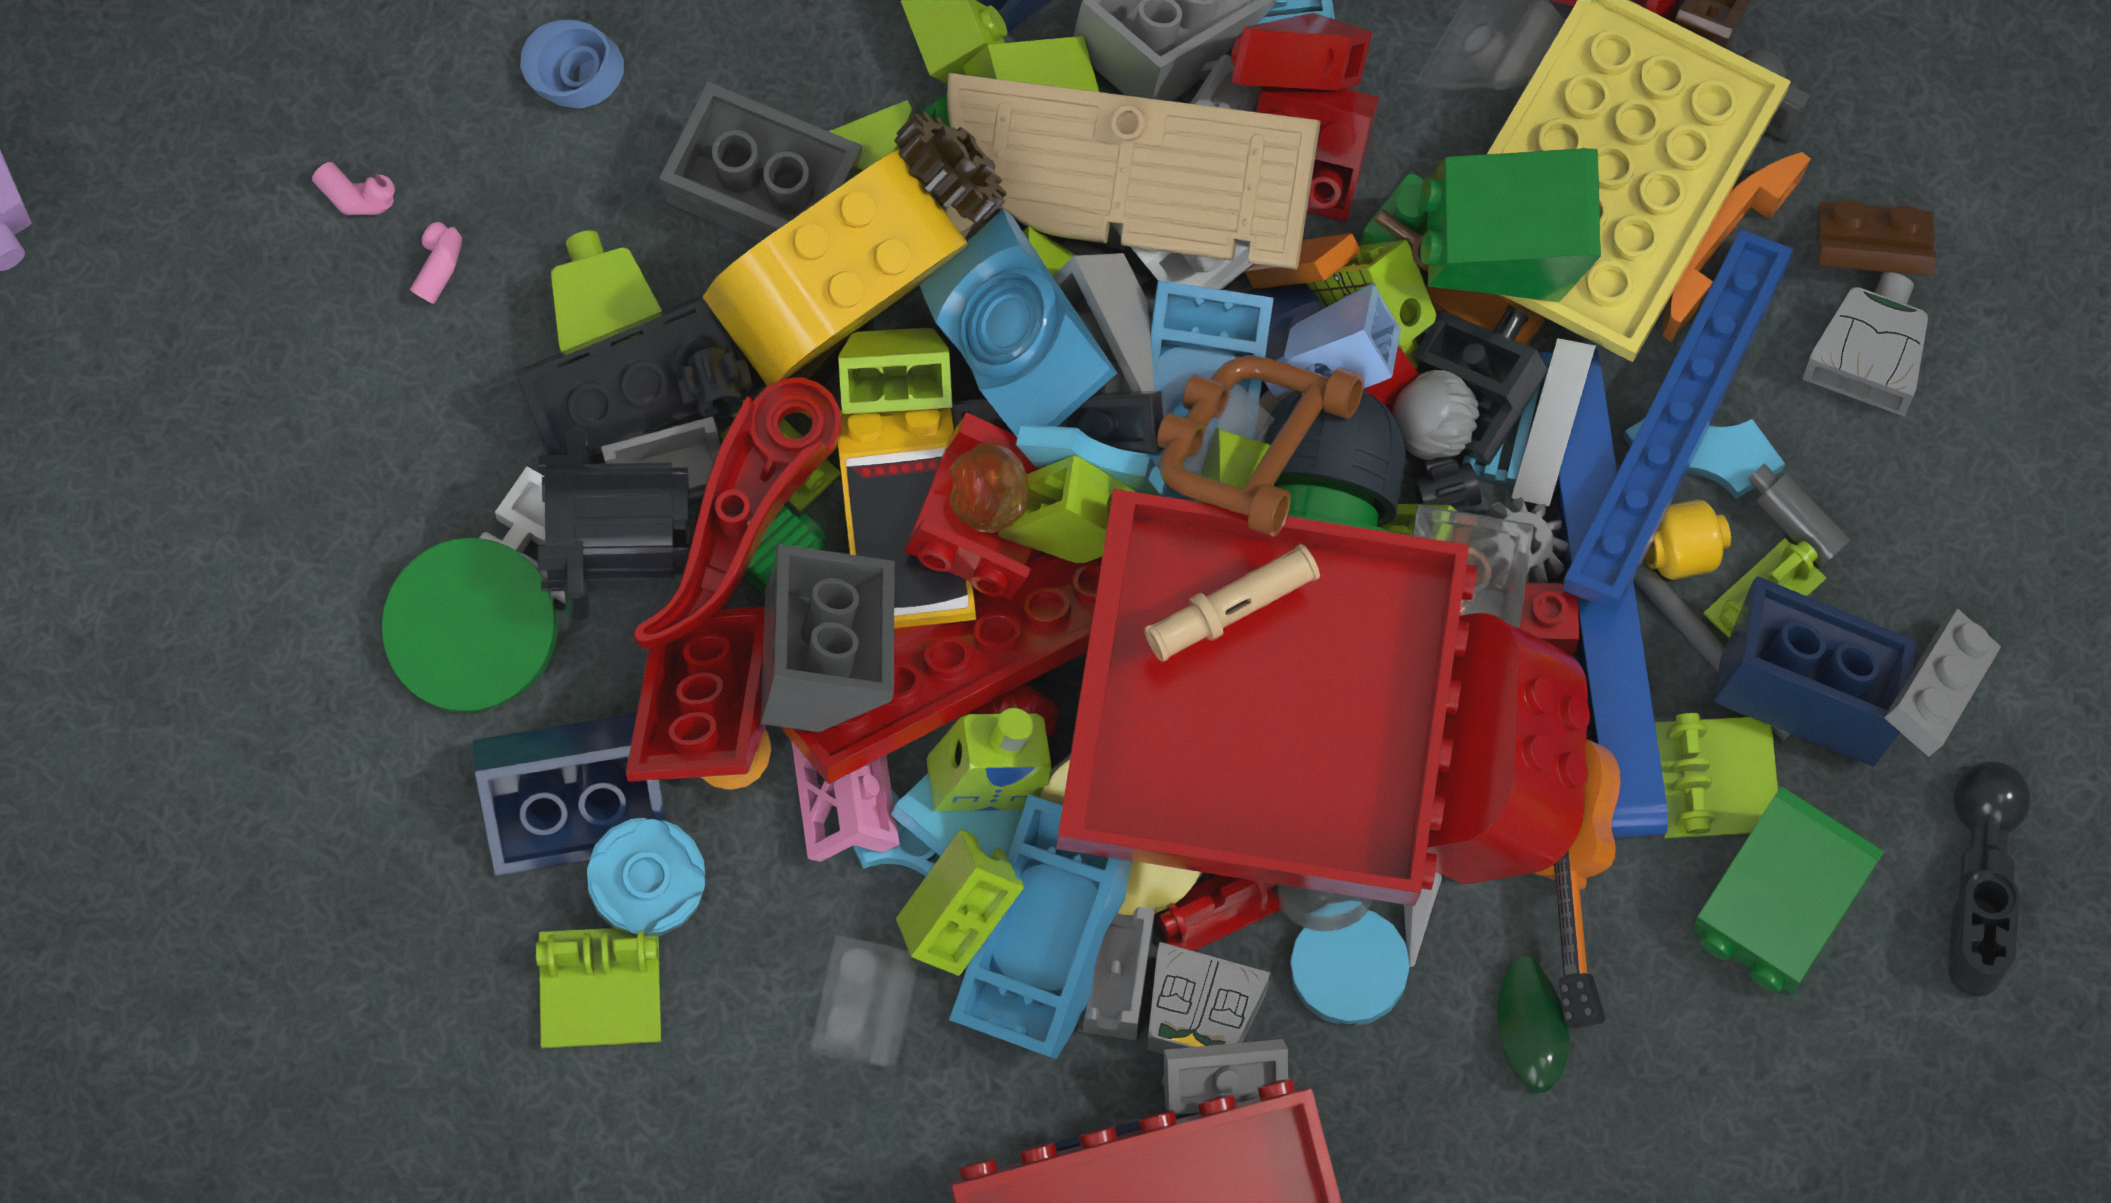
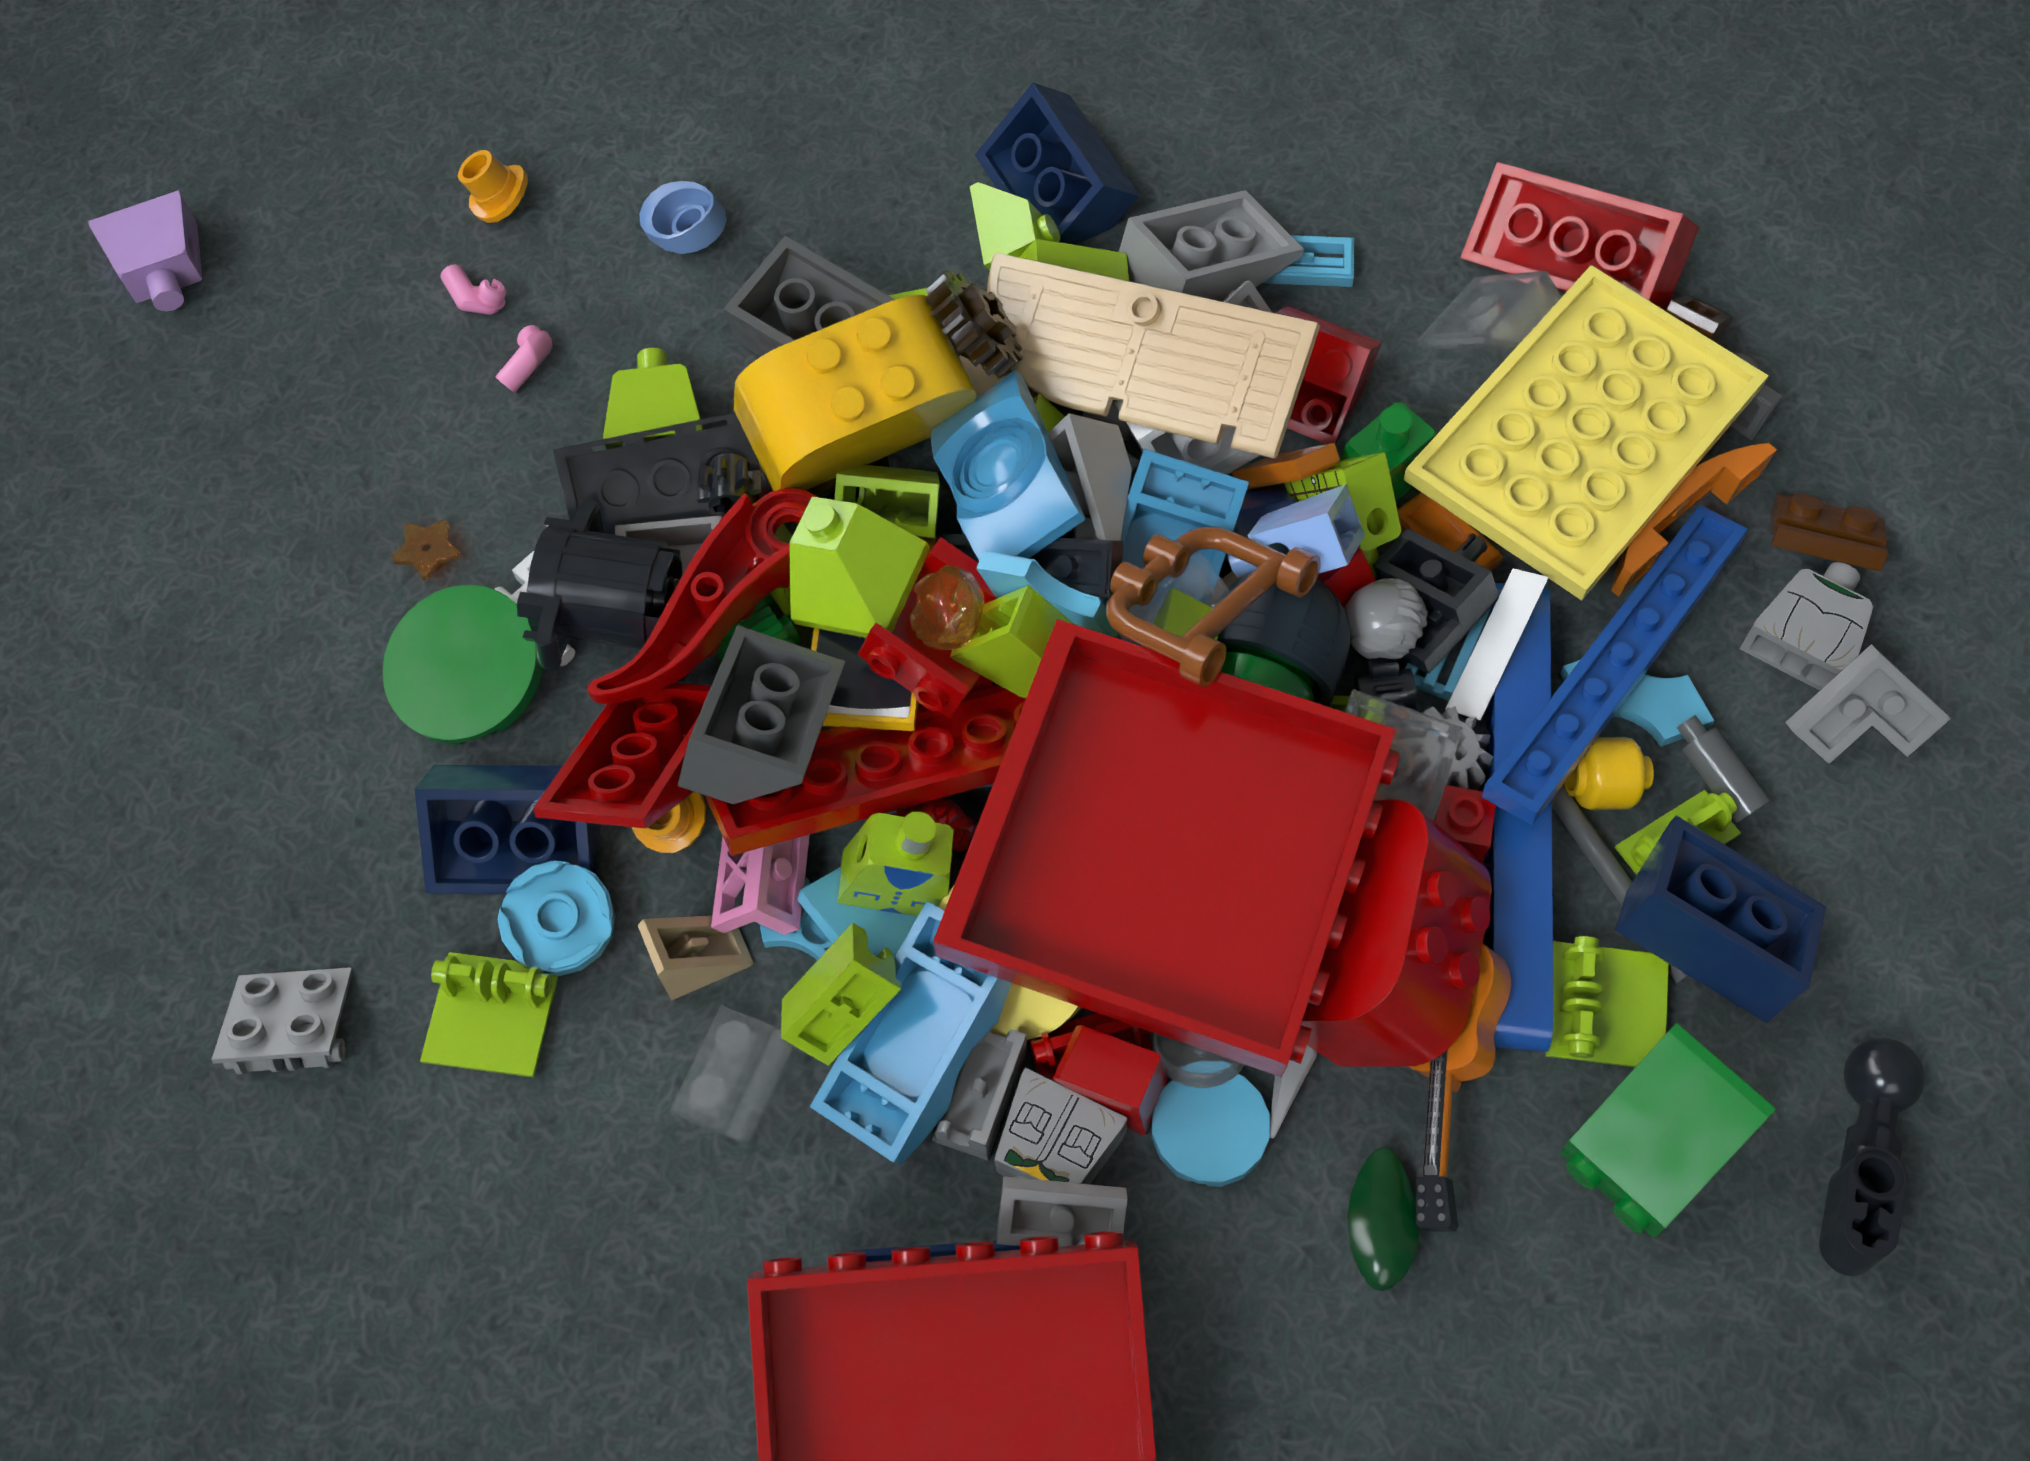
camera: 15 degrees right, 5 degrees down
(345, 60) = (492, 186): none -> light orange piece
(389, 1030) = (284, 1019): none -> light grey hinge
(393, 516) = (426, 561): none -> clear orange plate
(794, 888) = (692, 953): none -> tan slope
(879, 462) = (851, 568): none -> lime slope
(1211, 613) = (1133, 748): tan pin -> none
(1248, 933) = (1113, 1075): none -> red slope
(1301, 53) = (1314, 289): red slope -> none
(1403, 233) = (1395, 459): reddish brown hand -> none
(1512, 222) = (1488, 447): green slope -> none
(1932, 415) = (1863, 696): none -> light grey plate
(1942, 682) = (1850, 951): light grey plate -> none

